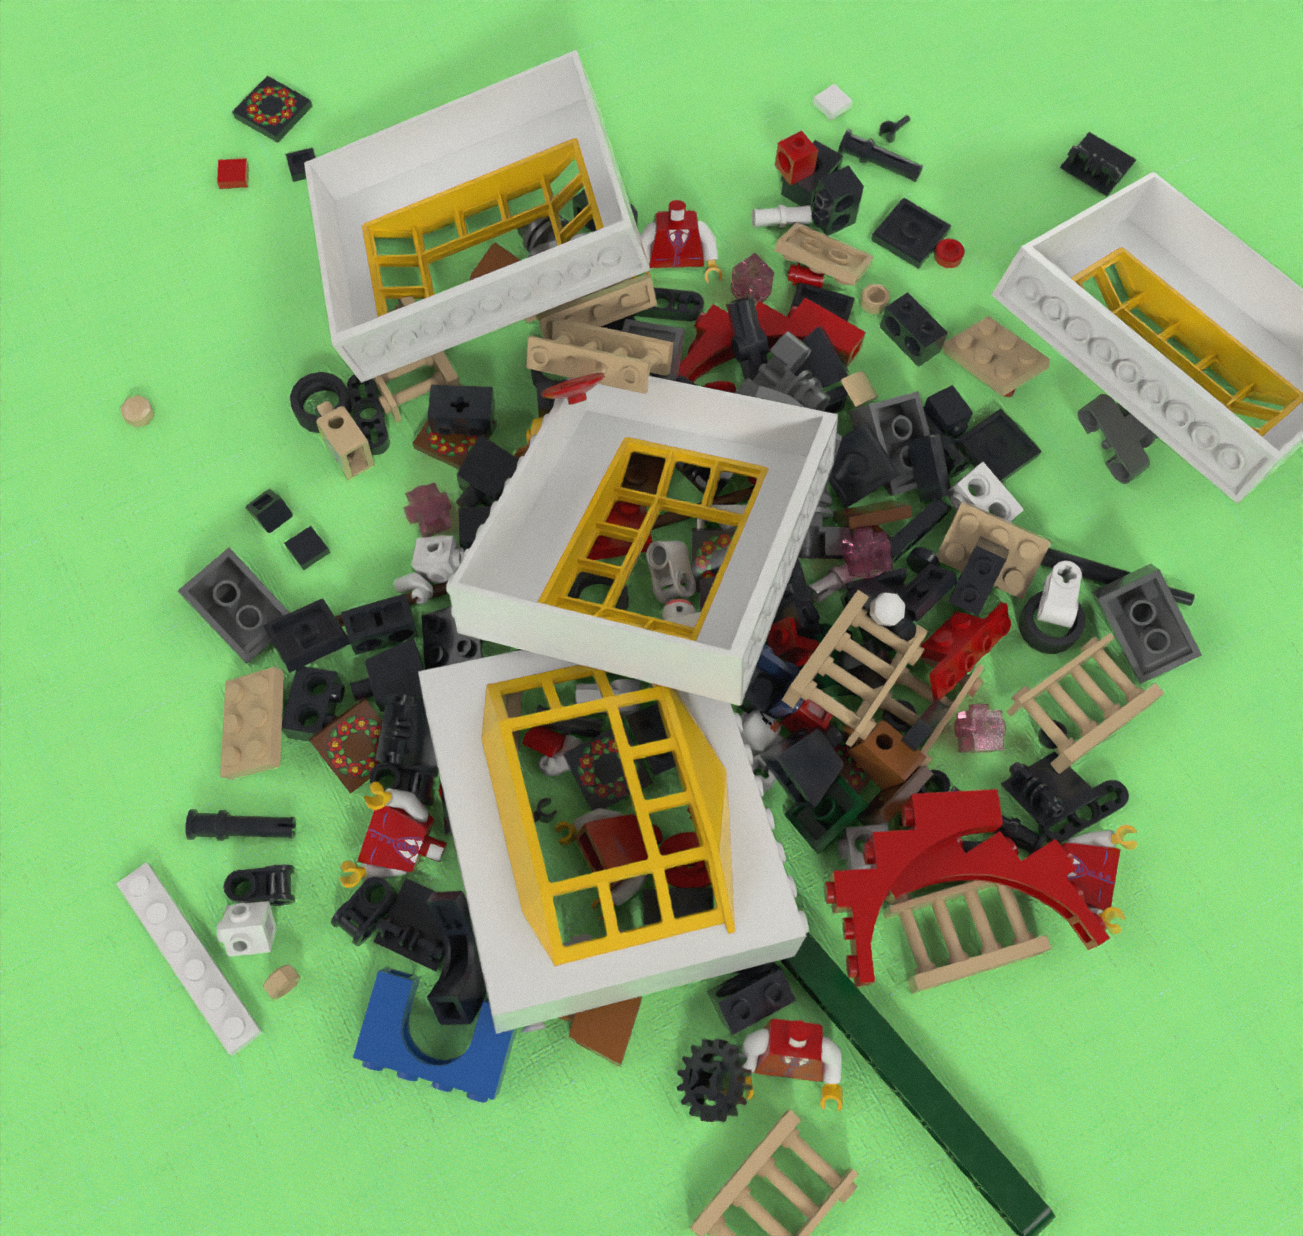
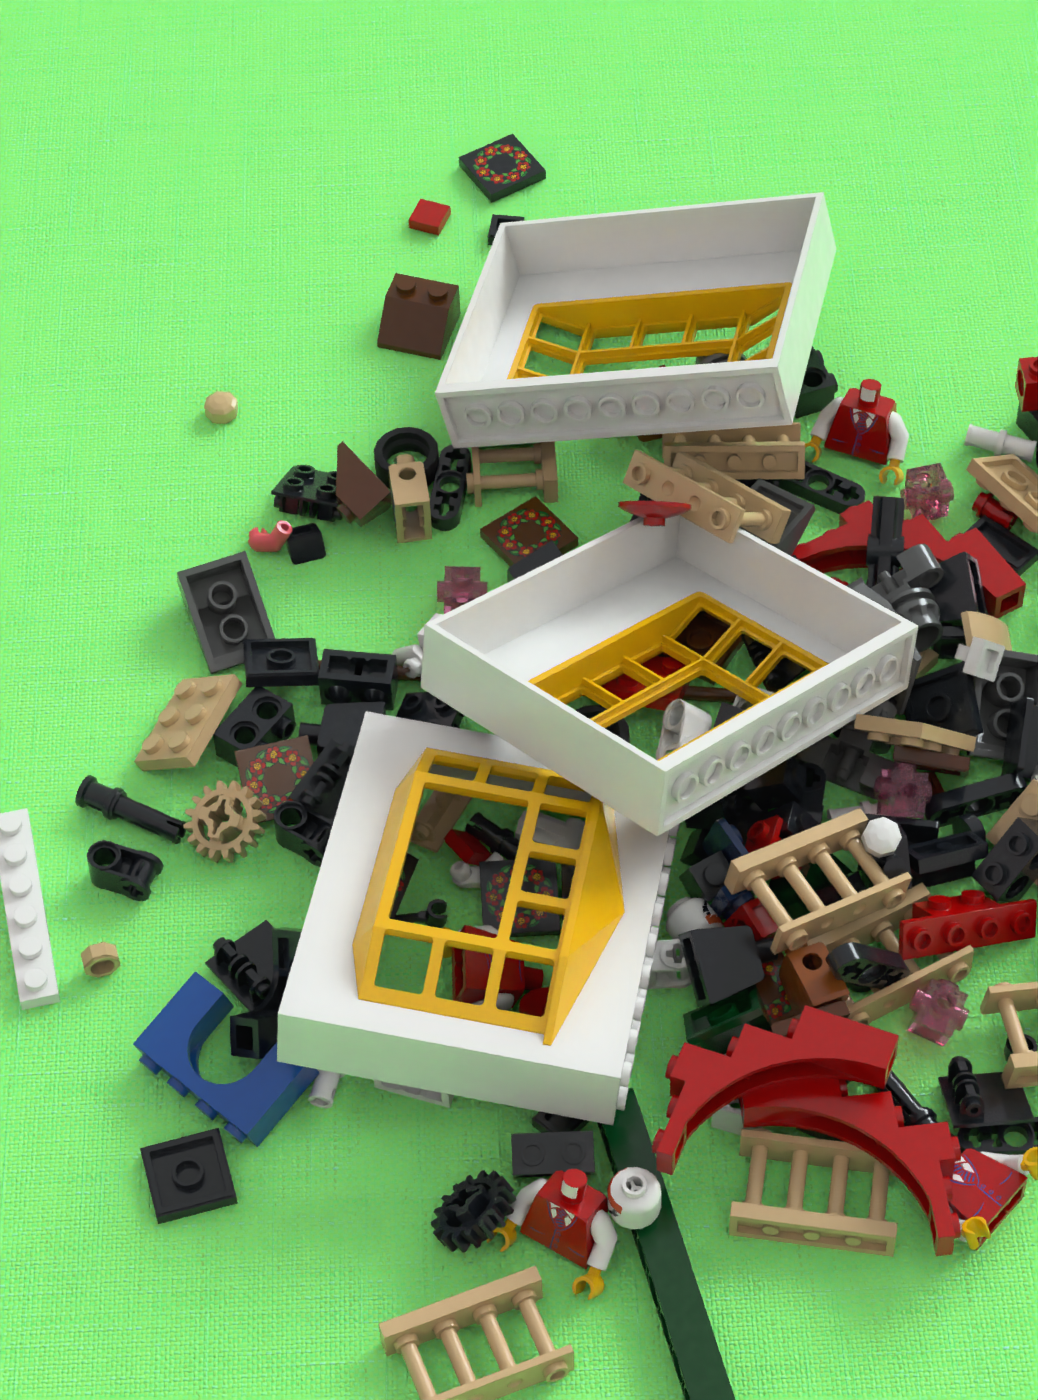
camera: 30 degrees right, 15 degrees down
(232, 524) = (270, 541): none -> coral arm
(247, 928) = (92, 897): white brick -> none
(255, 457) = (306, 485): none -> black hinge
(268, 268) = (419, 316): none -> reddish brown slope
(297, 449) = (358, 489): none -> reddish brown slope
(307, 548) = (323, 589): black tile -> none
(329, 791) = (228, 836): none -> tan gear
(363, 910) = (209, 925): black piece -> none
(394, 837) = (273, 871): torso -> none
(455, 1151) = (188, 1175): none -> black tile
(461, 410) = (545, 511): black brick -> none
(605, 1028) = (392, 1120): dark orange torso -> none
(834, 1023) = (634, 1198): none -> white head
(859, 501) = (914, 734): none -> tan plate
(880, 416) = (981, 658): none -> white tile

